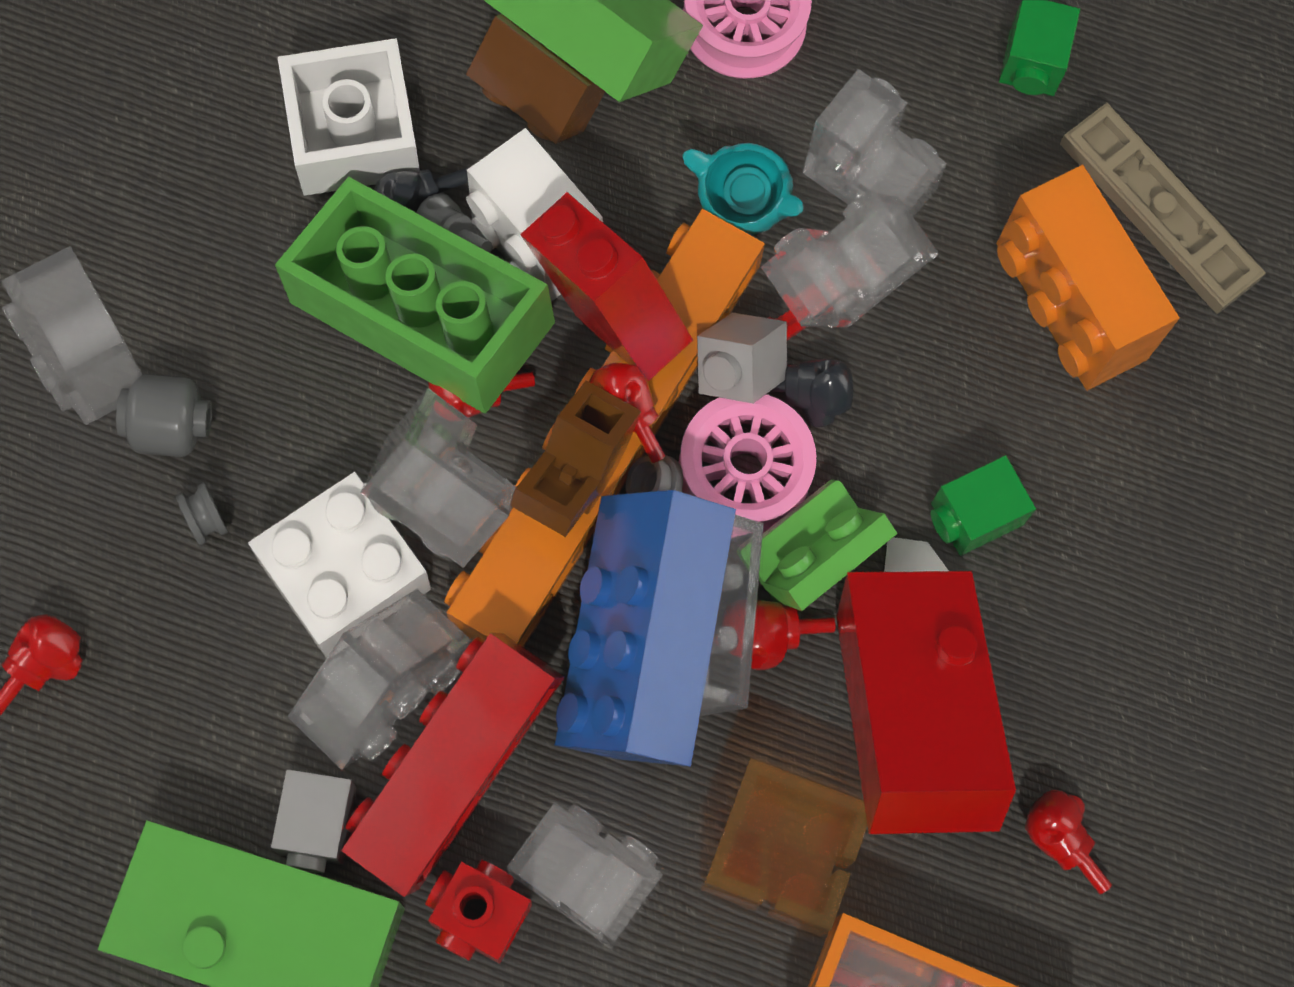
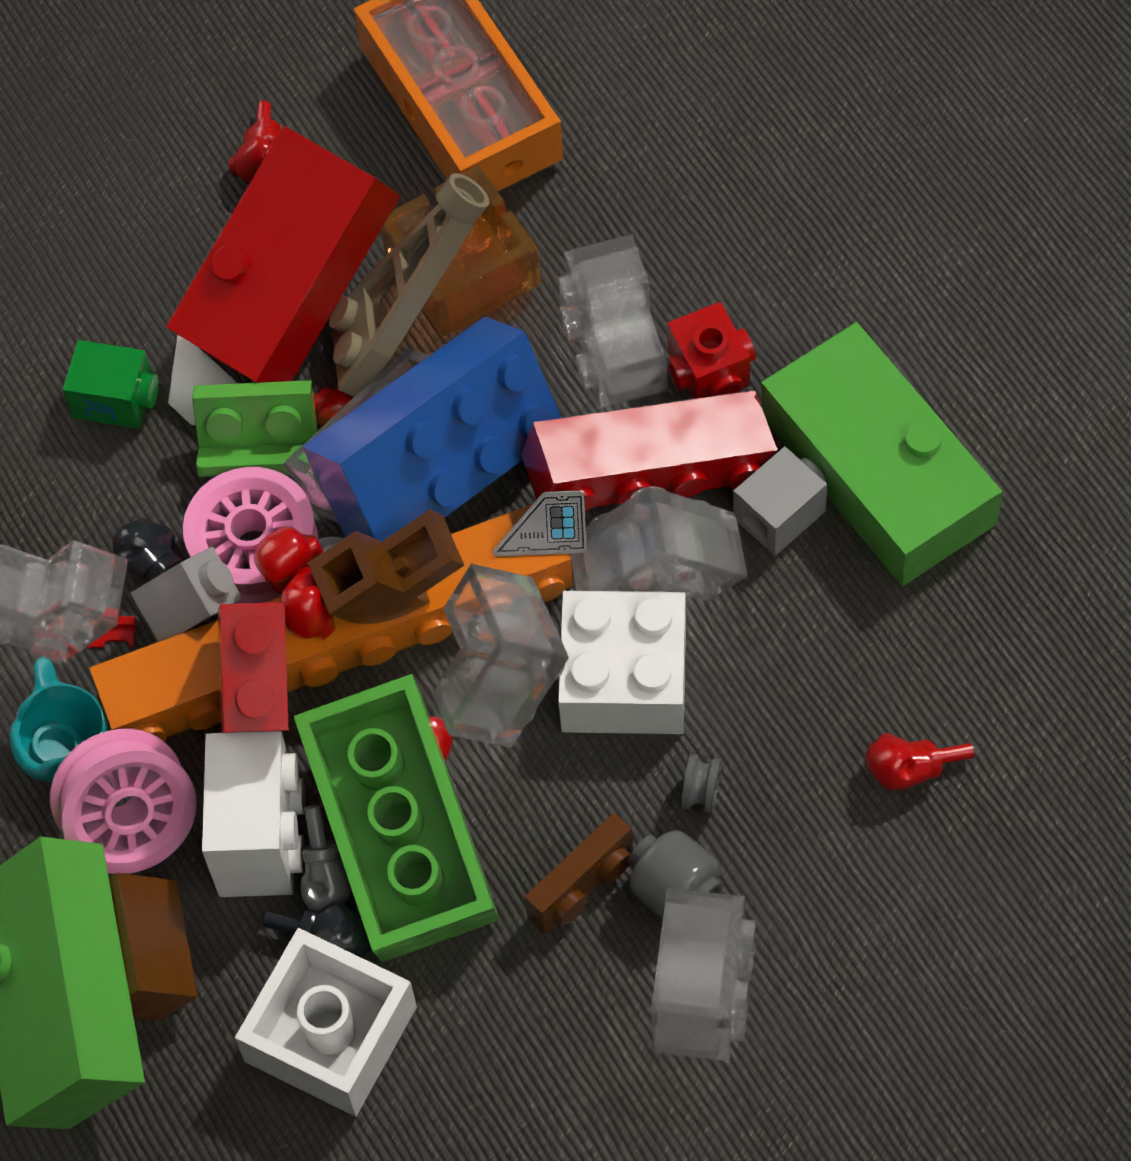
camera: 130 degrees left, 10 degrees down
(248, 347) = (565, 889): none -> reddish brown plate
(479, 613) = (549, 527): none -> light grey sticker
(641, 157) = (97, 778): none -> bright pink wheel
(678, 427) = (283, 554): none -> red piece
(783, 677) = (360, 331): none -> dark tan plate

